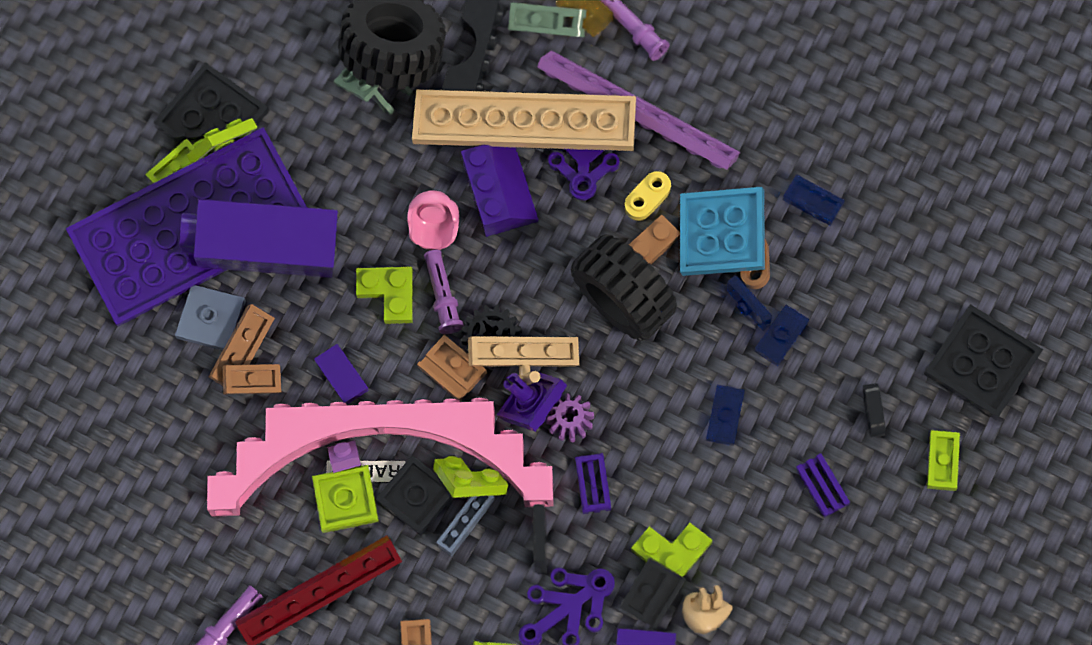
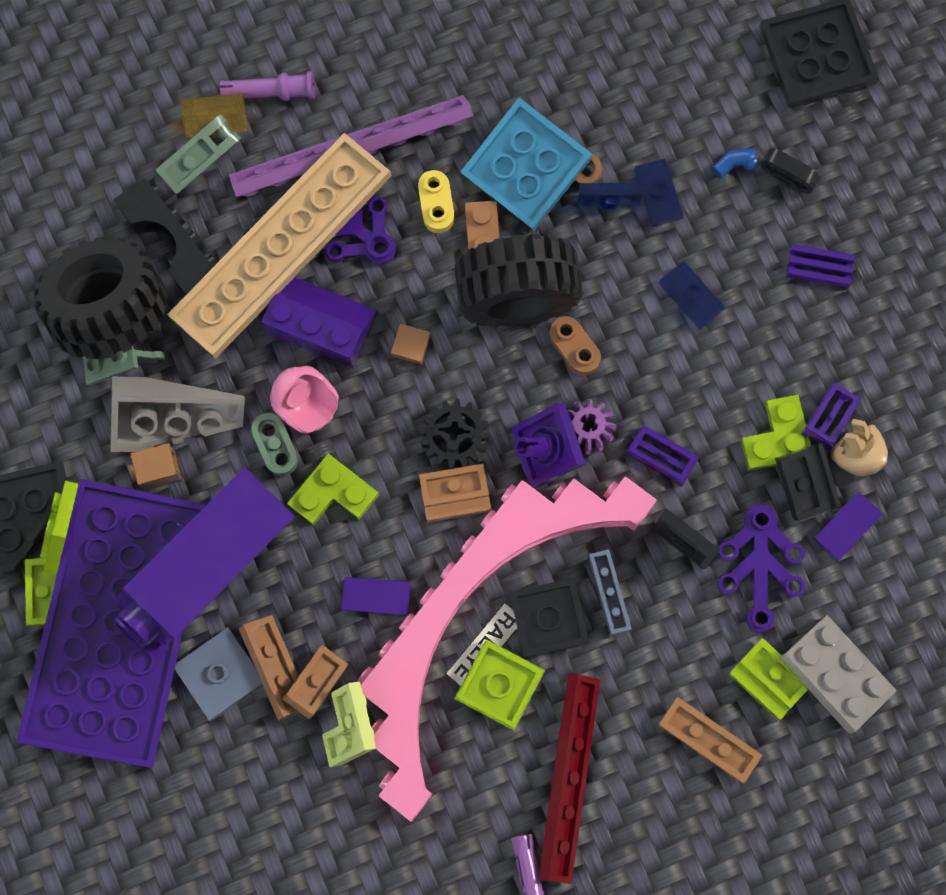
camera: 55 degrees left, 5 degrees up
(233, 429) = (354, 733): none -> yellowish green plate
(312, 167) = (154, 467): none -> medium nougat brick
(344, 456) = (459, 654): medium lavender plate -> none
(350, 139) = (161, 412): none -> light grey wedge
(389, 230) = (276, 445): none -> sand green plate
(444, 303) = (388, 451): medium lavender pin -> none
(464, 483) = (578, 565): lime plate -> none
(524, 353) = (499, 418): tan plate -> none
(532, 259) = (410, 344): none -> medium nougat tile
(622, 364) = (573, 345): none -> medium nougat plate
(691, 576) = (819, 435): none -> dark purple tile
(813, 200) = (559, 70): clear blue plate -> none
(852, 366) = (745, 157): none -> blue arm
(943, 460) = (879, 151): lime plate -> none

